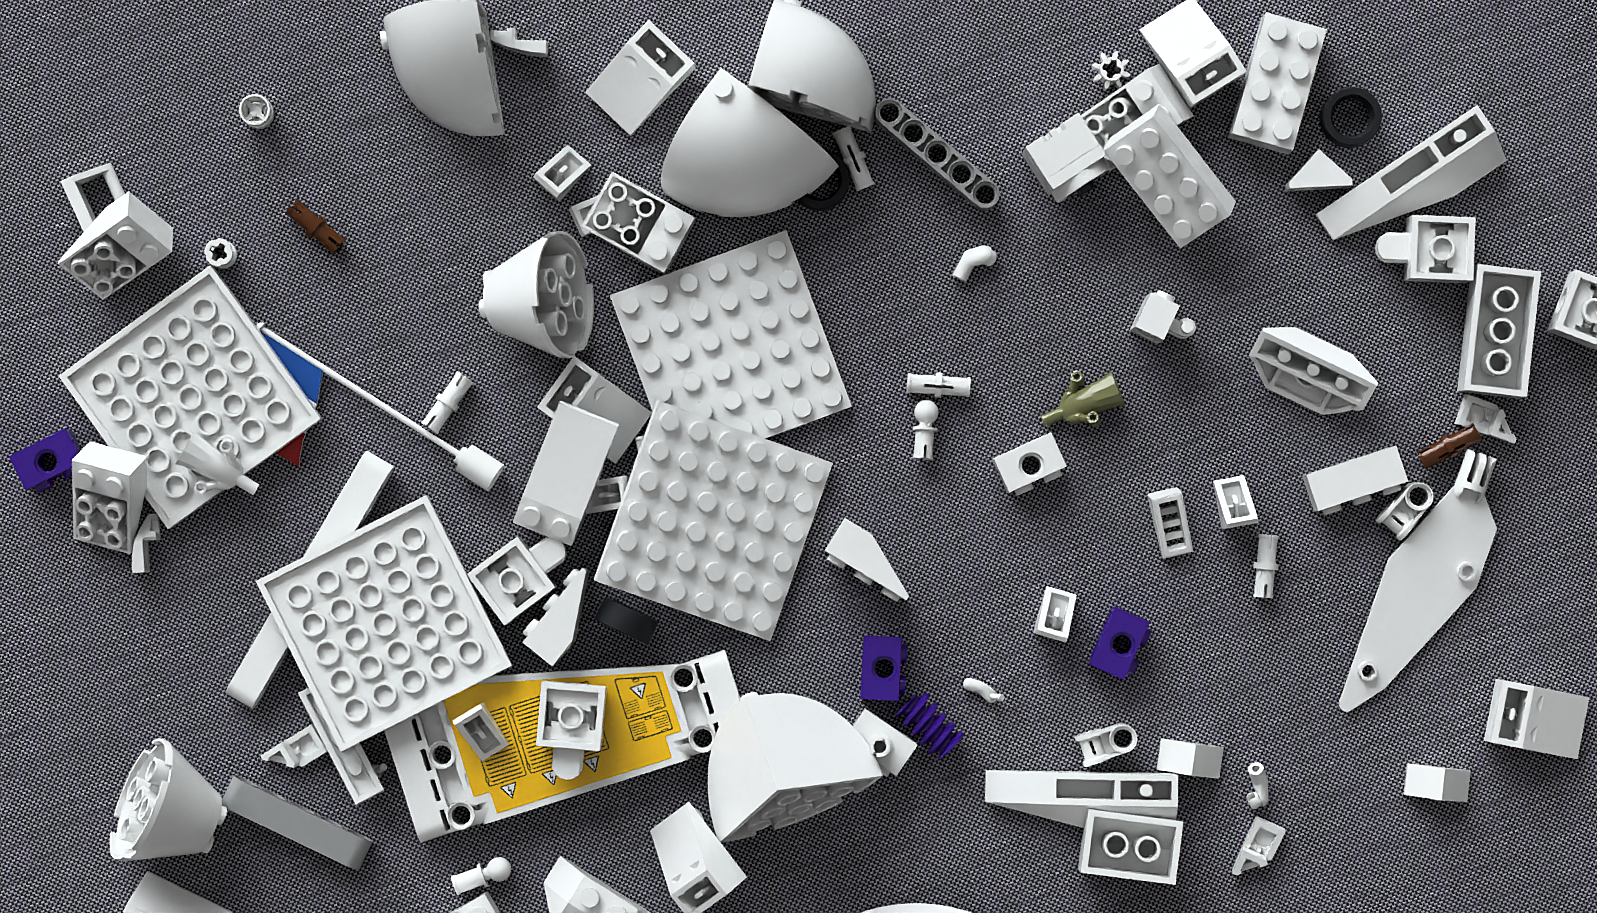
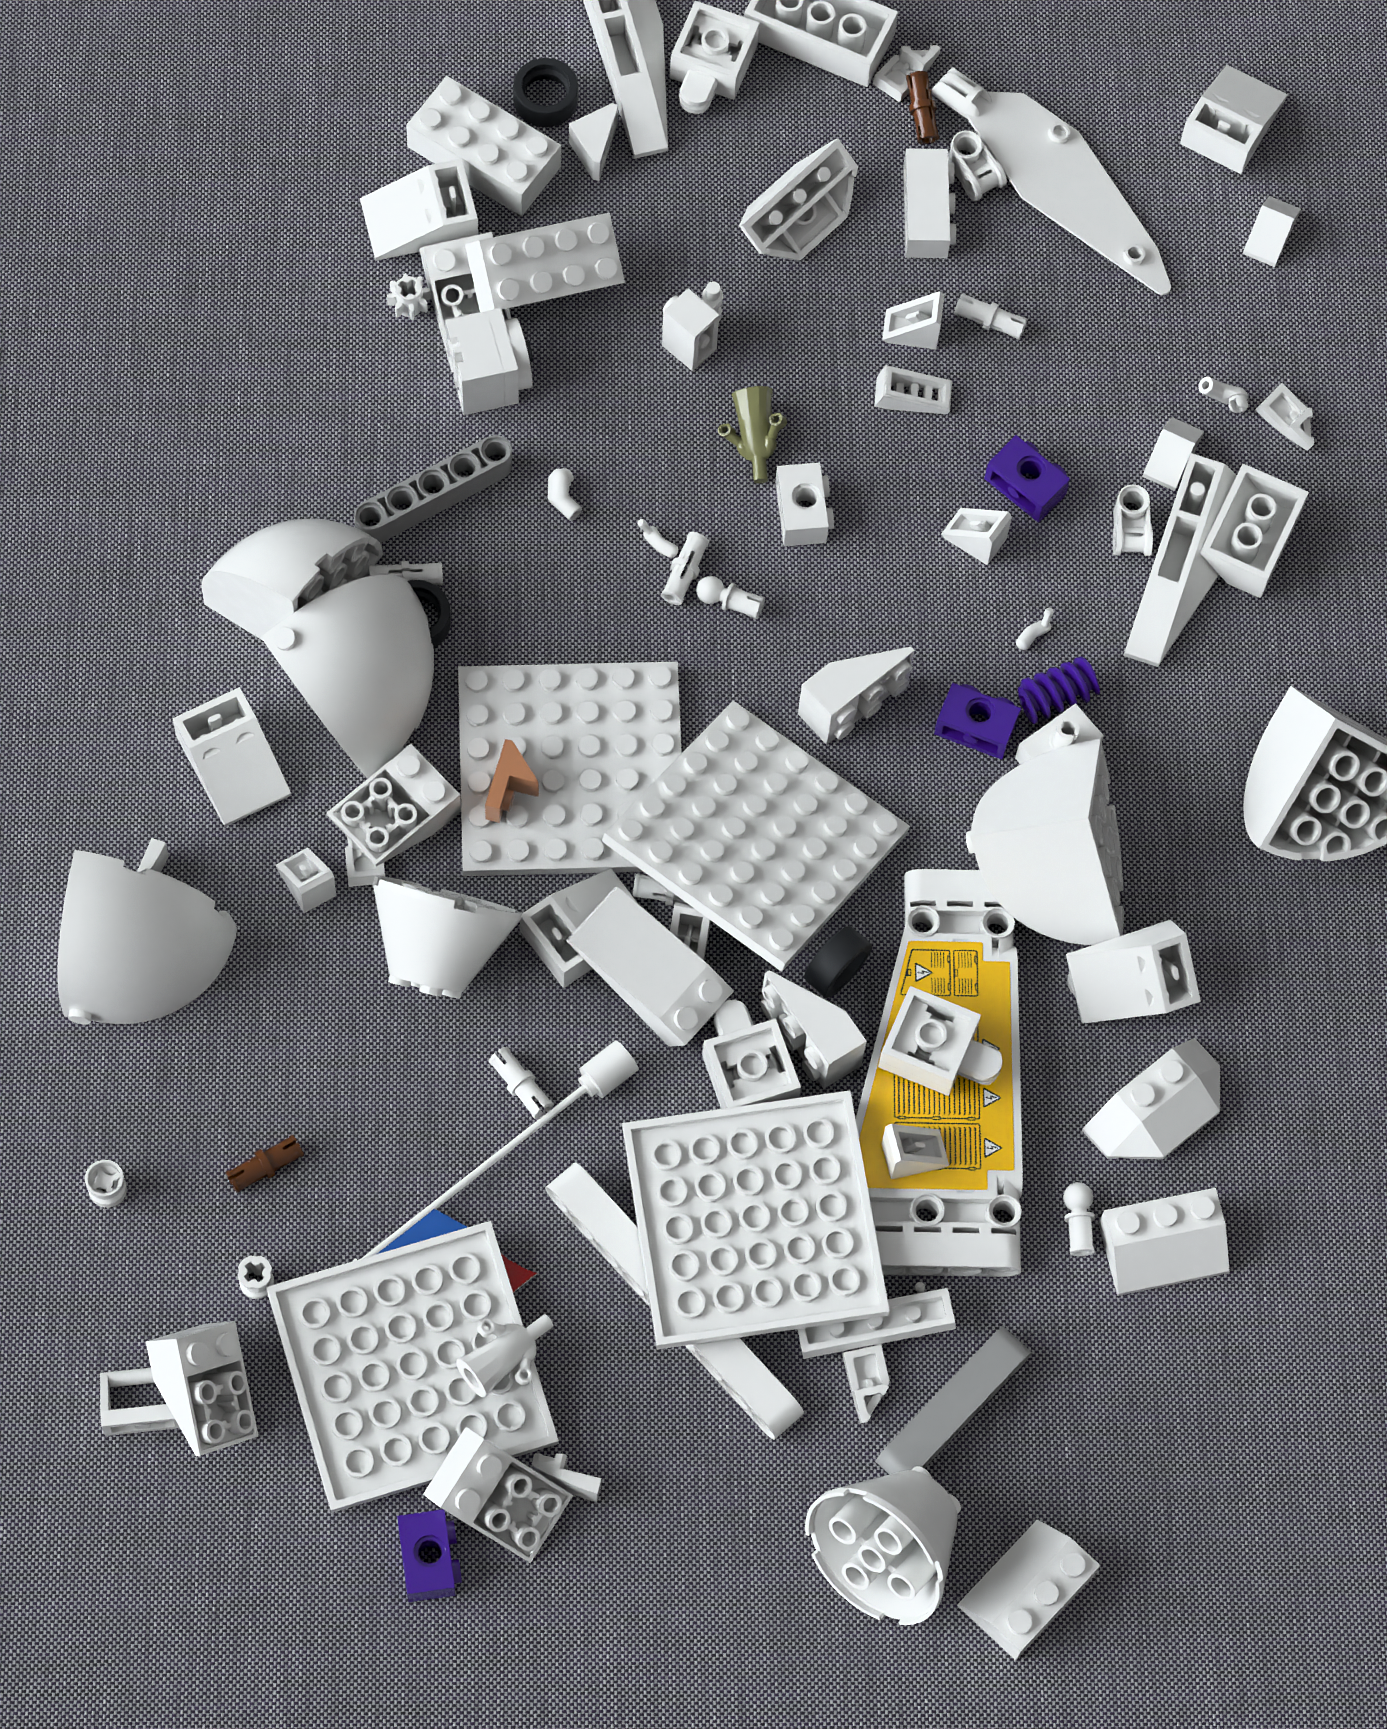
camera: 75 degrees left, 20 degrees down
(698, 304) = (510, 776): none -> nougat slope
(958, 353) = (657, 541): none -> white piece

